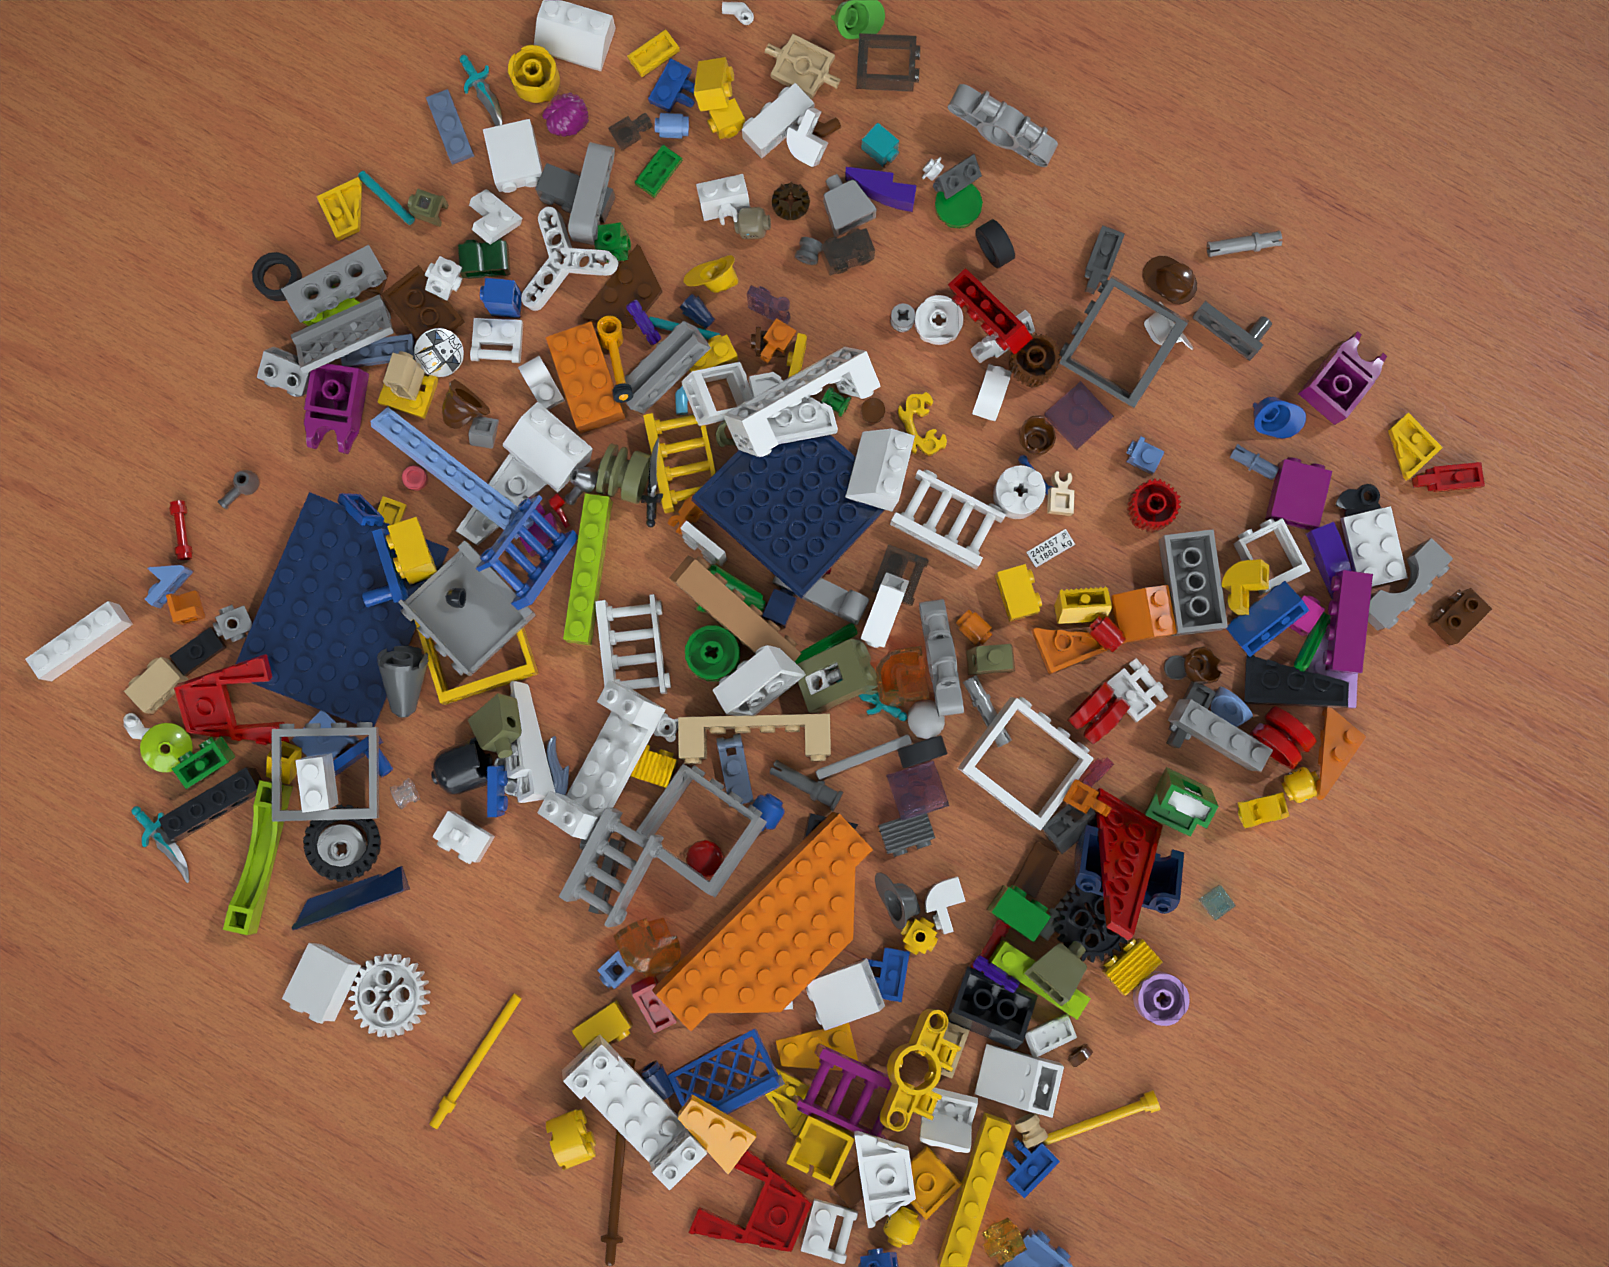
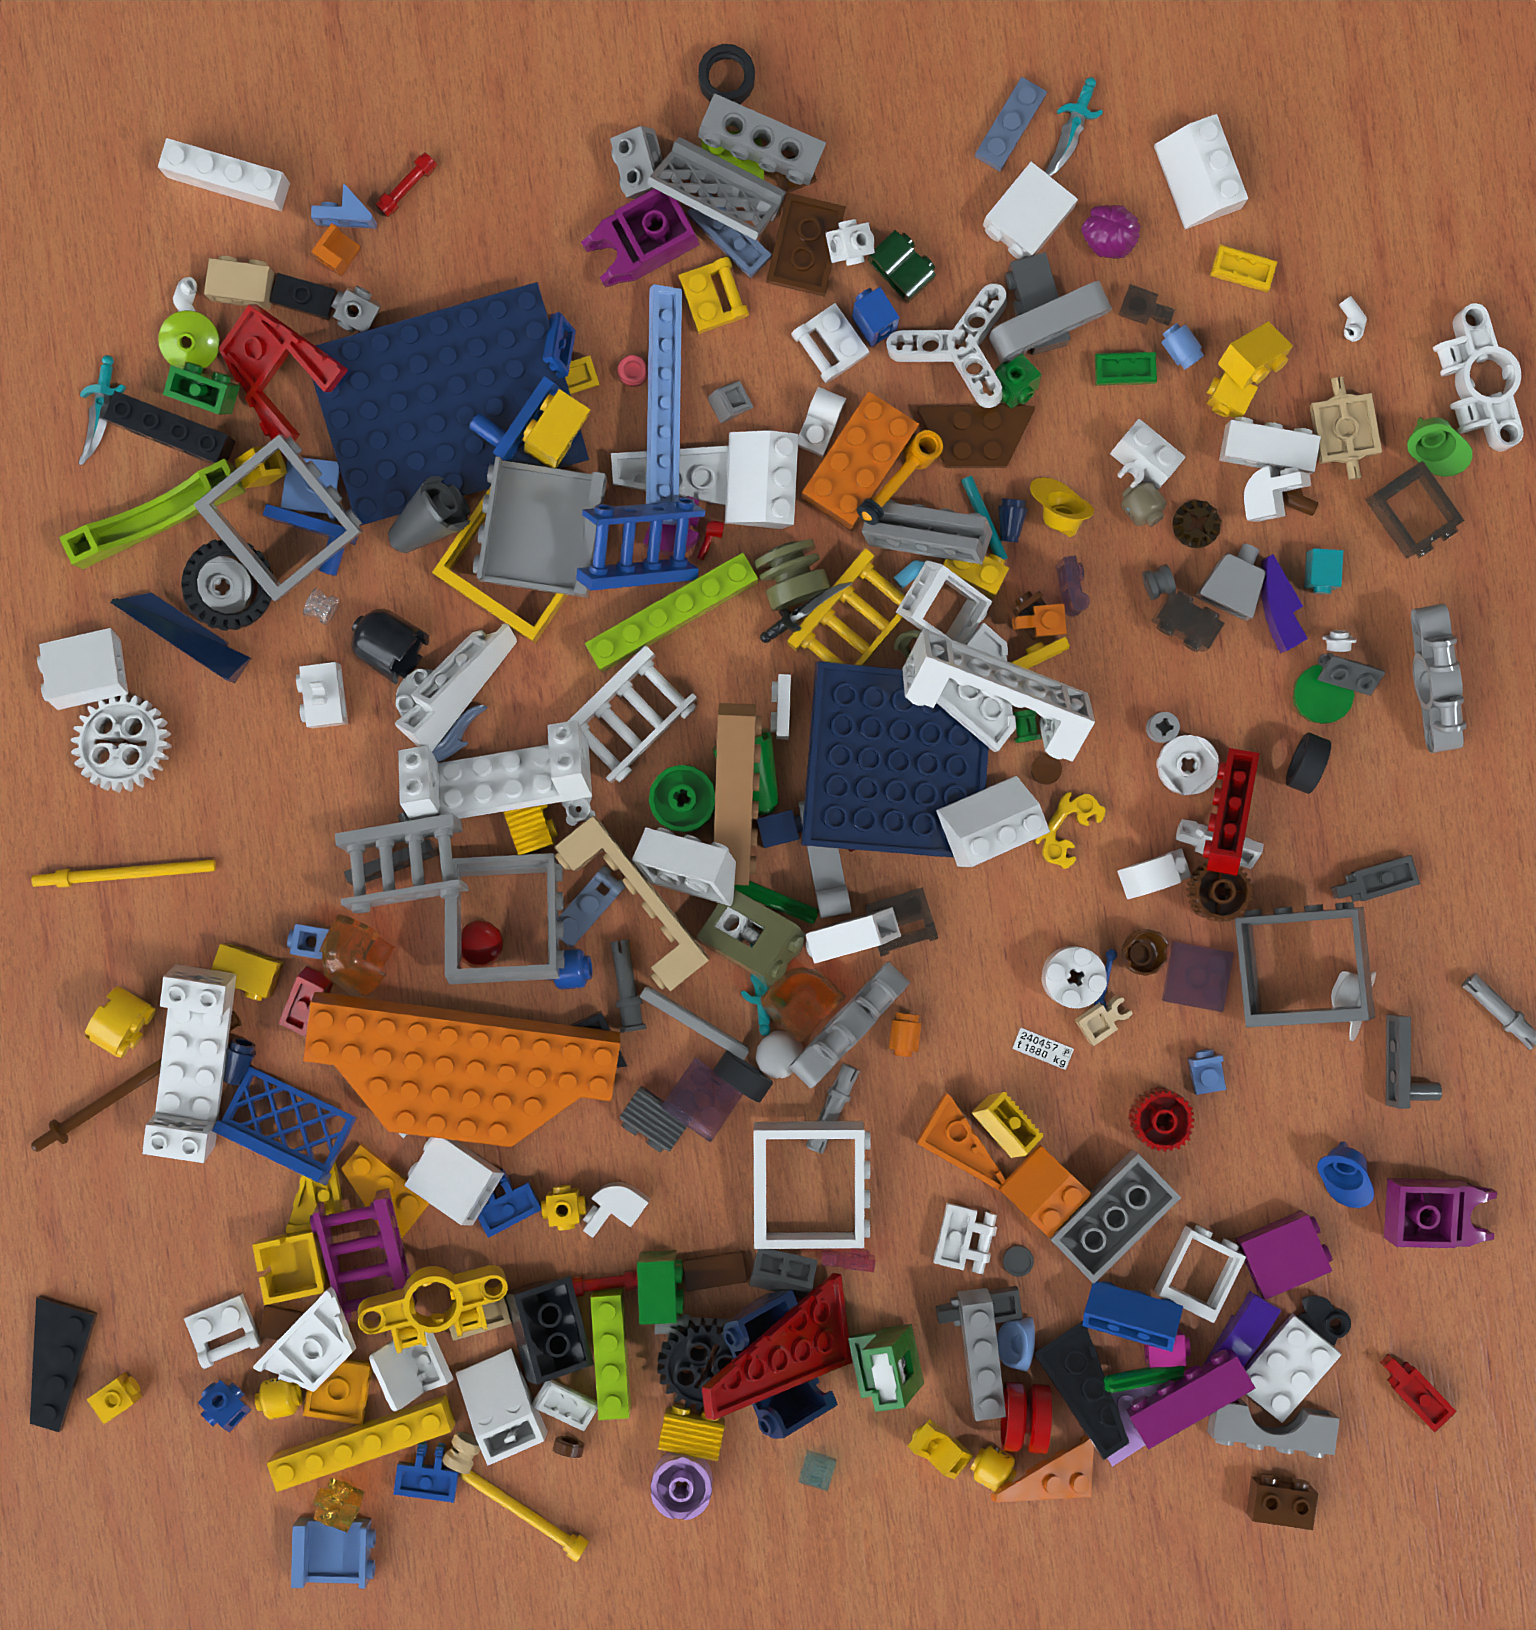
camera: 50 degrees right, 5 degrees up
(246, 488) = (499, 217): flat silver bar -> none
(317, 782) = (260, 521): white brick -> none
(343, 208) = (845, 85): yellow wing -> none
(386, 197) = (889, 118): teal bar -> none
(404, 375) = (722, 283): tan brick -> none
(426, 206) = (911, 167): olive window -> none
(439, 352) = (773, 296): white dish -> none
(456, 597) = (544, 508): black hinge -> none
(461, 405) = (738, 362): reddish brown piece -> none
(496, 800) = (397, 688): blue plate -> none
(497, 217) = (955, 246): white plate -> none
(497, 725) = (452, 645): olive torso -> none
(534, 74) = (1128, 150): yellow brick -> none
(584, 481) = (756, 540): flat silver bar -> none
(643, 322) = (959, 474): dark purple axle -> none
(670, 85) = (1223, 311): blue hinge -> none
(689, 512) = (800, 667): orange plate -> none
(716, 1131) = (230, 1156): light orange wing -> none
(775, 1217) = (199, 1270): red wing -> none
(898, 899) = (583, 1161): dark grey piece -> none
(948, 543) = (970, 945): white fence -> none
(990, 659) = (885, 1074): olive torso -> none
(996, 974) = (582, 1307): dark purple axle -> none
(1018, 592) = (972, 1051): yellow brick -> none
(1059, 971) = (630, 1370): olive torso -> none
(1084, 798) = (817, 1267): orange plate -> none
(1102, 716) = (912, 1220): red wheel -> none
(1106, 633) = (997, 1169): red brick -> none
(1170, 279) = (1409, 963): reddish brown piece -> none
(1202, 666) = (1037, 1286): reddish brown hair -> none
(1241, 579) = (1150, 1262): yellow brick -> none
(1254, 462) = (1283, 1186): sand blue axle -> none
(1412, 445) = (1421, 1330): yellow wing -> none

